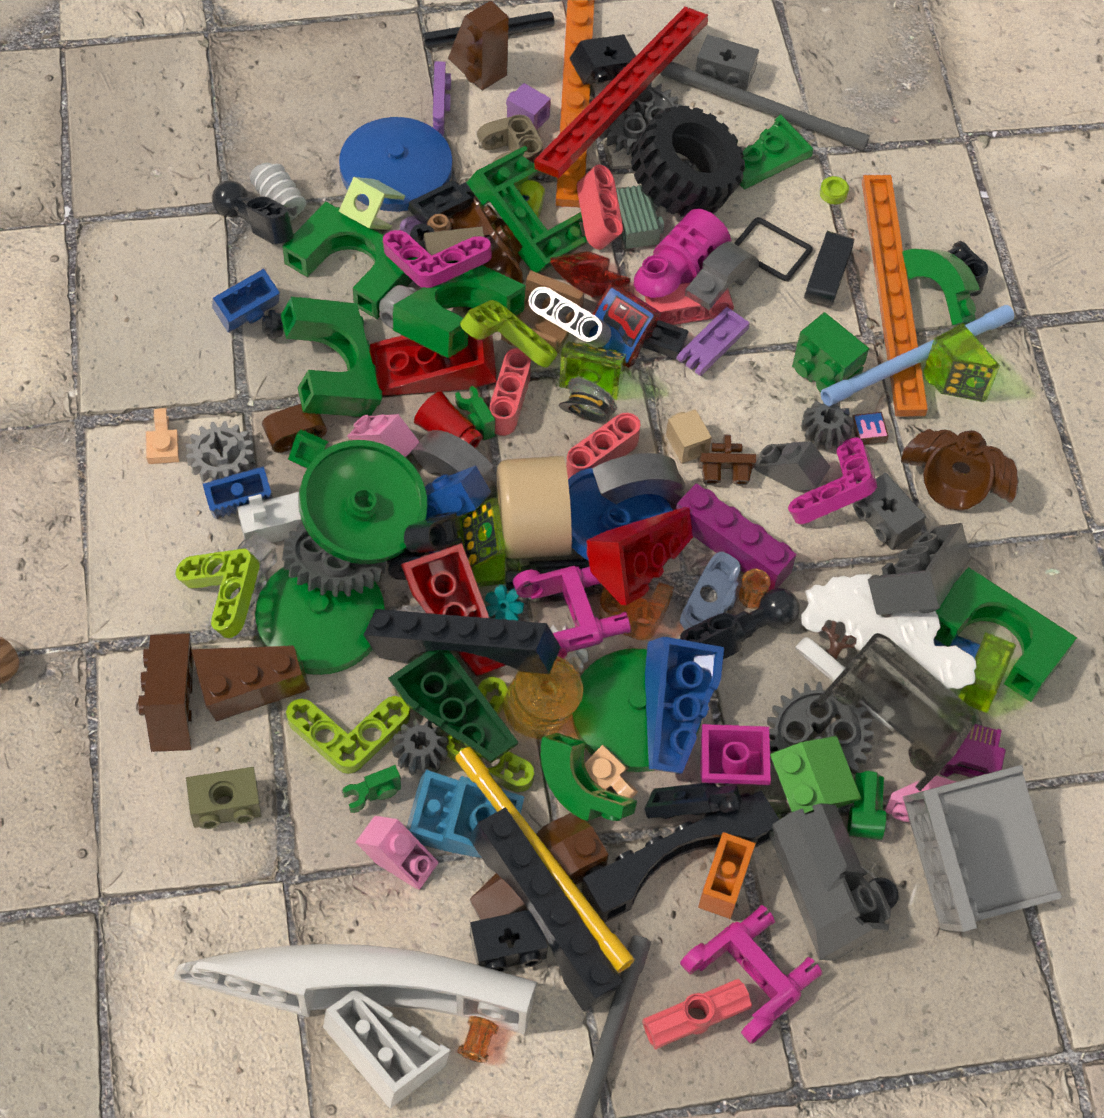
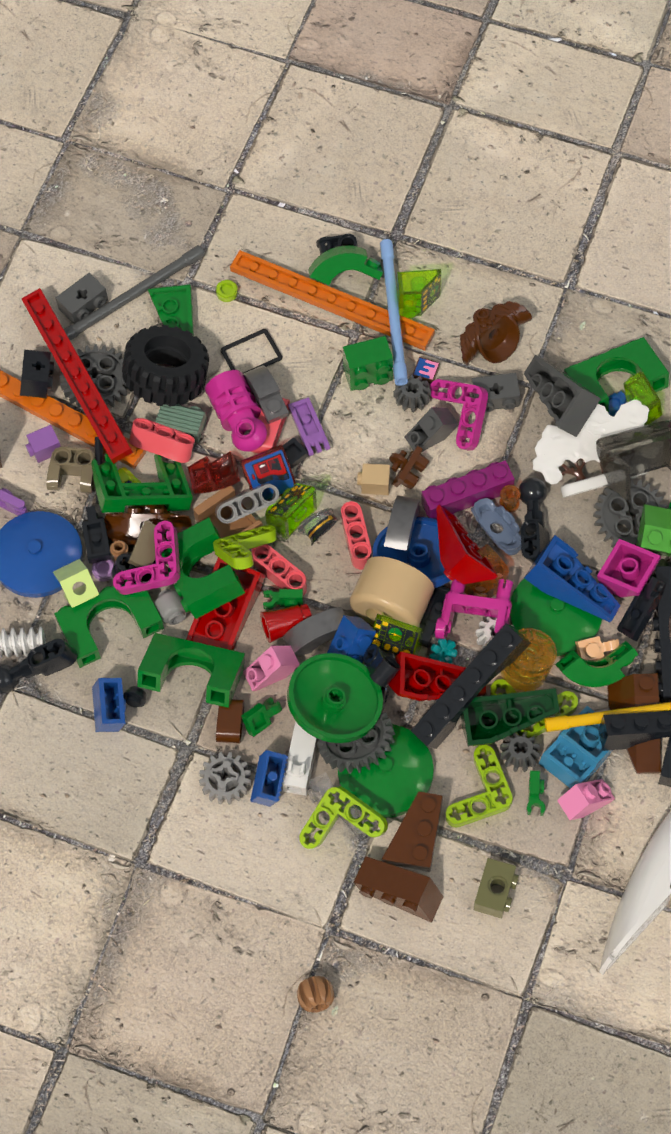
camera: 55 degrees left, 5 degrees up
(162, 444) = (191, 815): light nougat plate -> none
(829, 268) = (291, 327): black beam -> none

